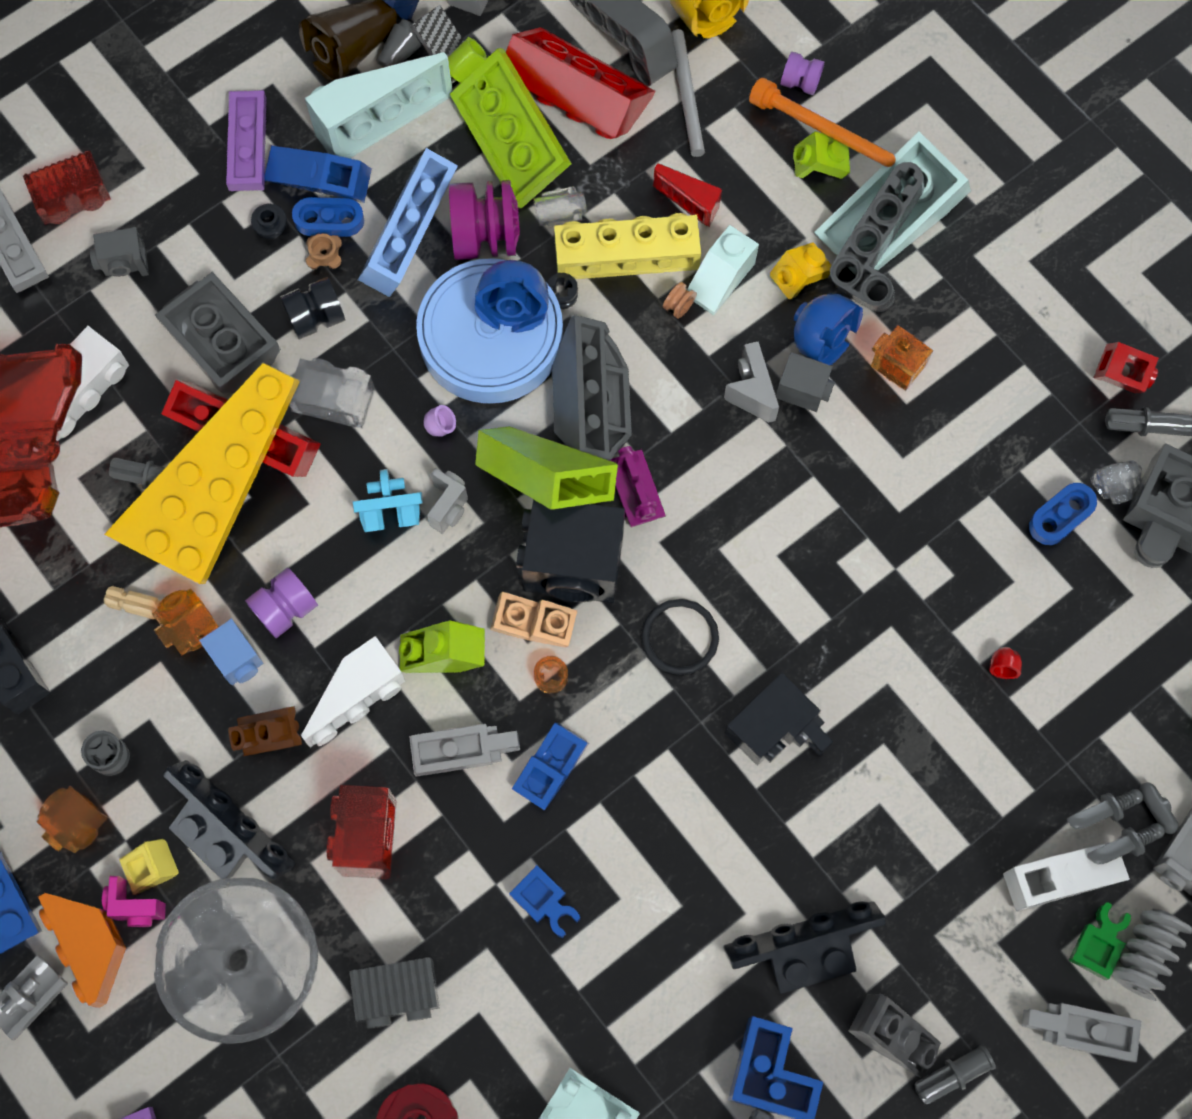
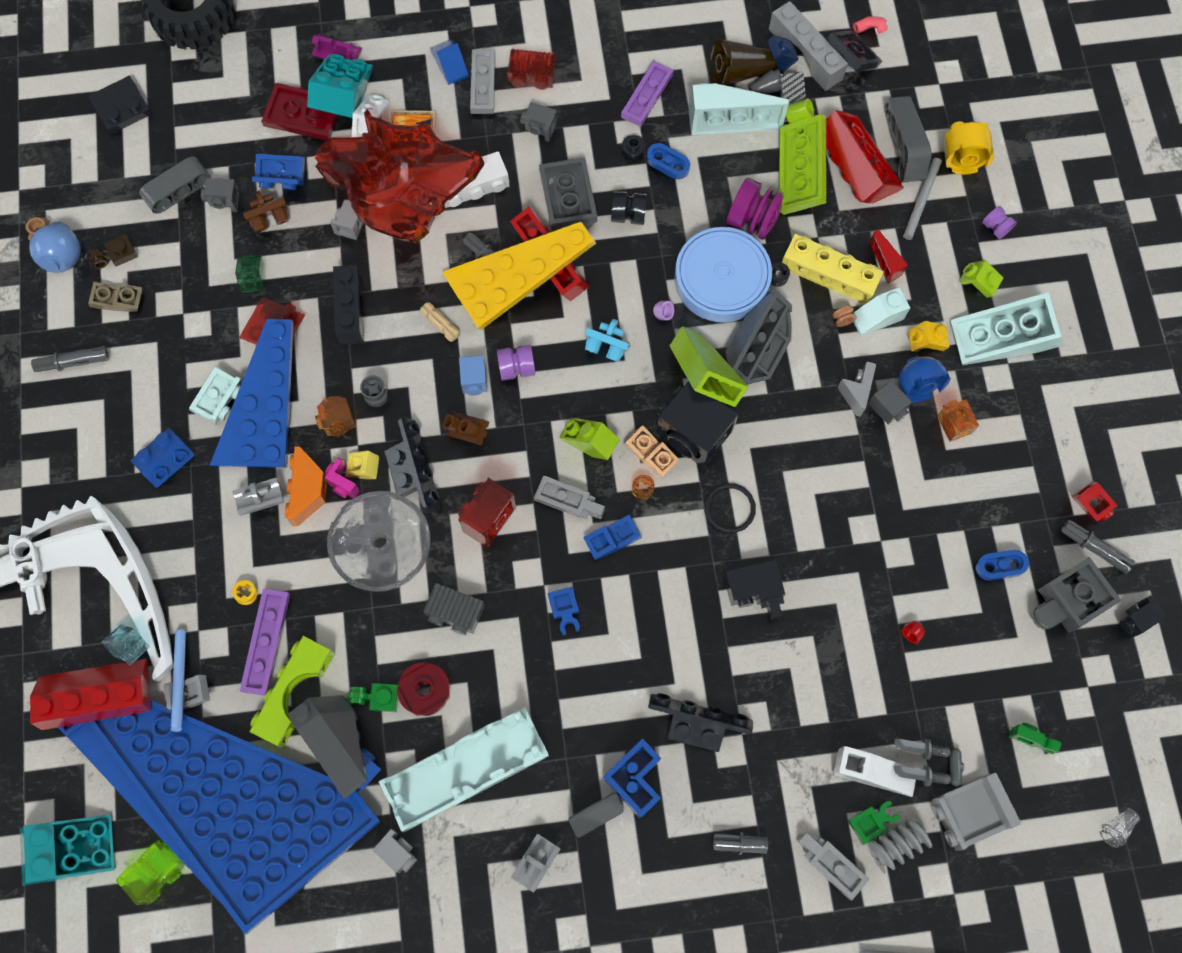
camera: 30 degrees right, 0 degrees up
(183, 621) = (456, 342): clear orange brick -> none
(318, 172) = (677, 133): blue slope -> none
(323, 242) = (654, 173): medium nougat plate -> none
(332, 392) = (612, 261): clear brick -> none
(357, 684) = (529, 431): white slope -> none
(407, 223) = (711, 187): light blue brick -> none
(450, 505) = (641, 360): light grey bracket -> none
(512, 296) = (745, 259): blue cylinder -> none
(559, 207) = (805, 225): clear brick -> none
(637, 488) = (755, 409): magenta hinge -> none
(766, 95) = (969, 223): orange piece -> none
(883, 232) = (990, 339): dark grey beam -> none
(895, 1034) = (719, 800): flat silver slope -> none
(1117, 481) = (1047, 564): clear cone -> none

